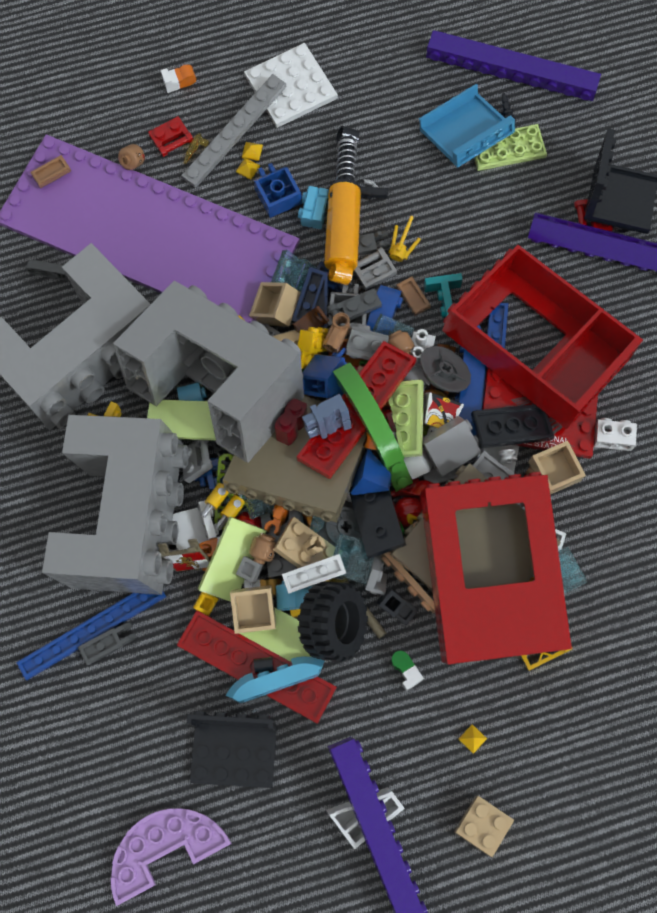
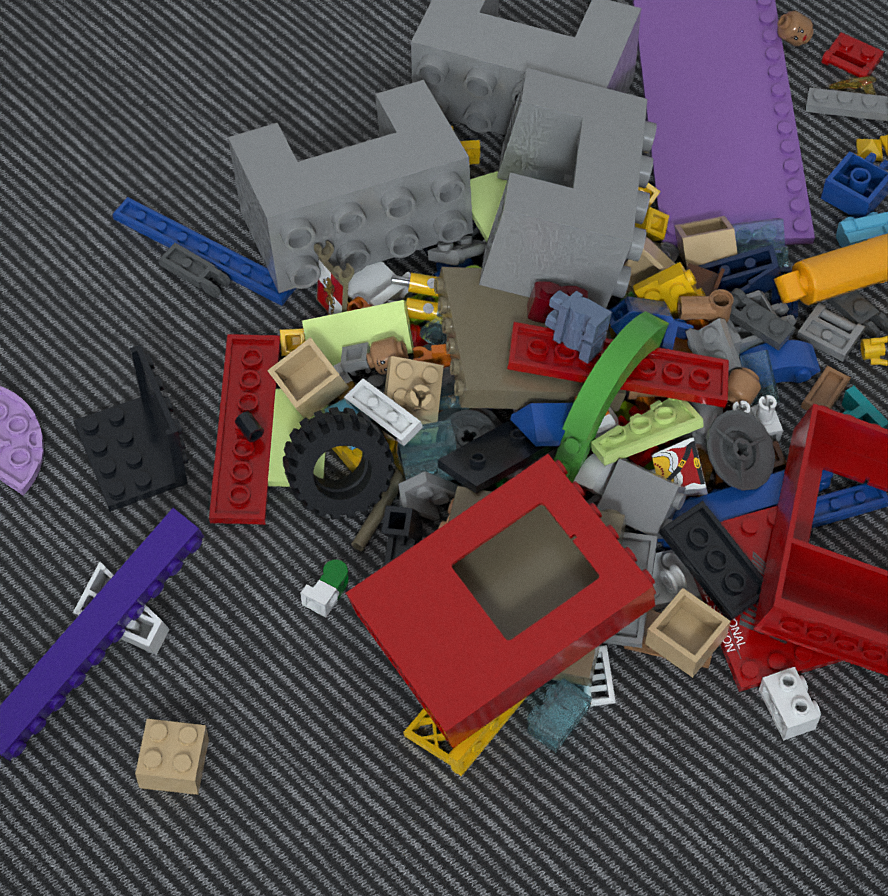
camera: 60 degrees right, 15 degrees down
(301, 670) = (245, 453): medium azure brick -> none
(472, 738) = (280, 704): yellow slope -> none

